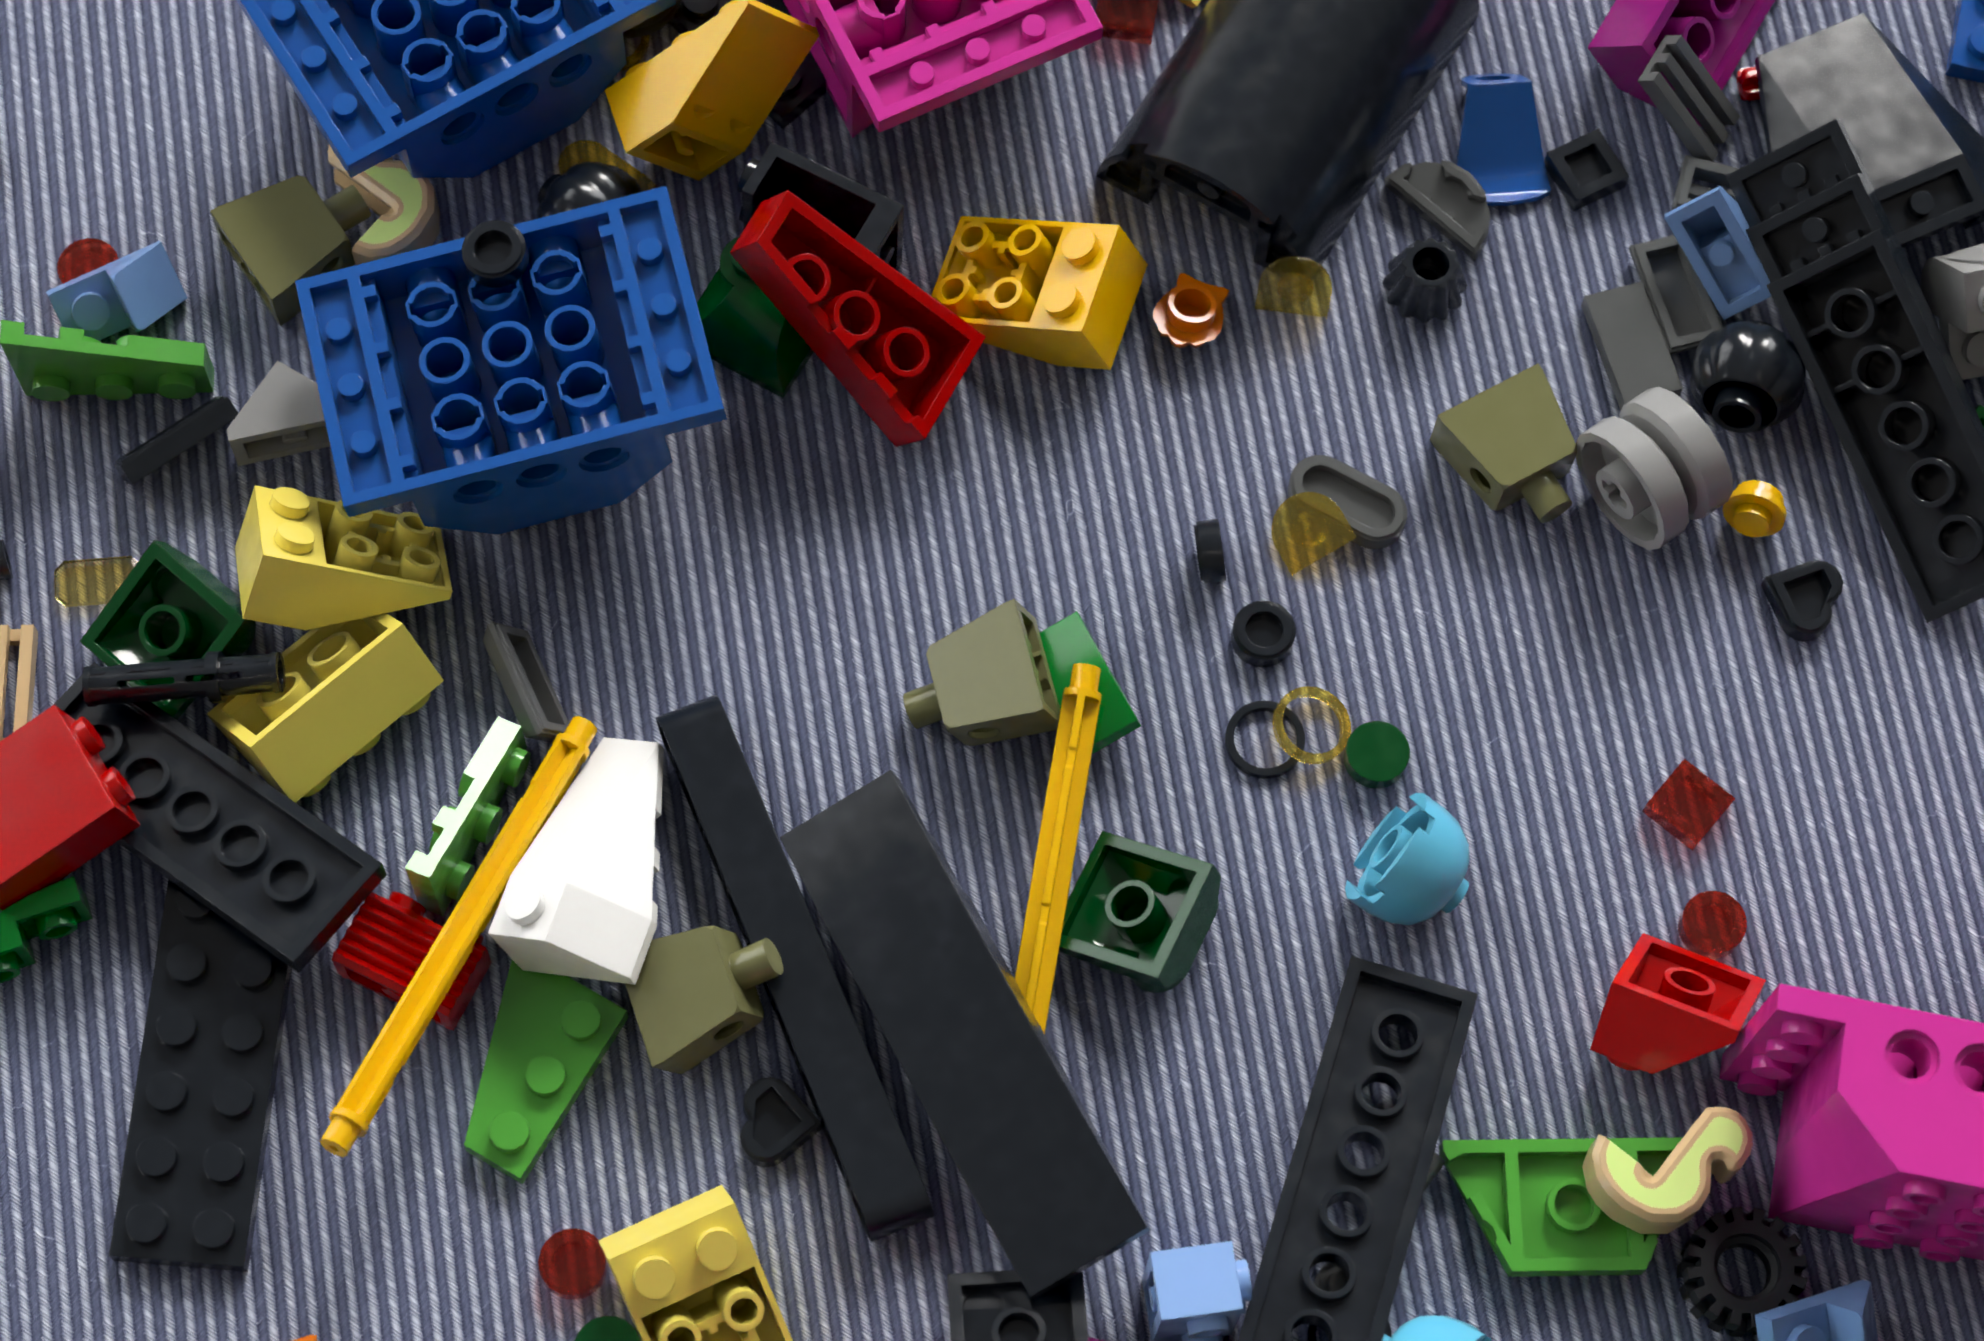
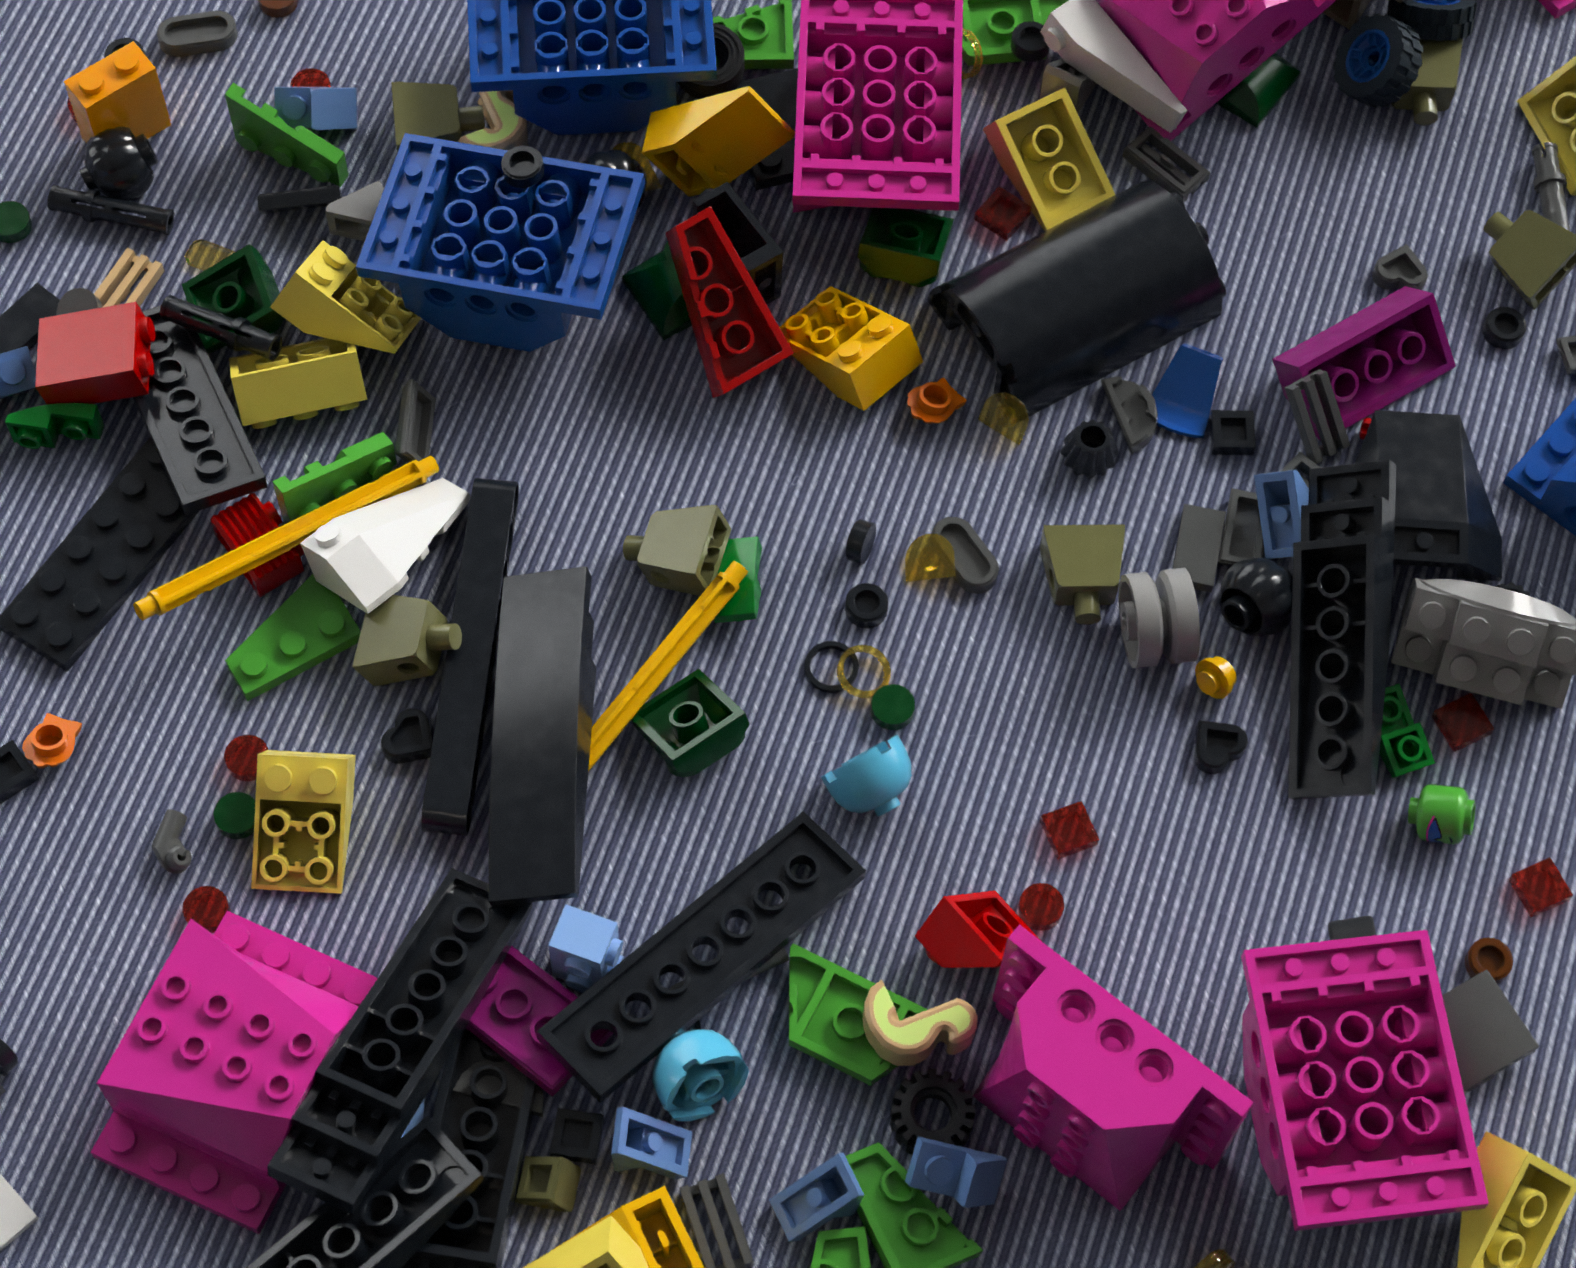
camera: 30 degrees right, 5 degrees down
(1036, 119) = (904, 245): none -> dark green slope

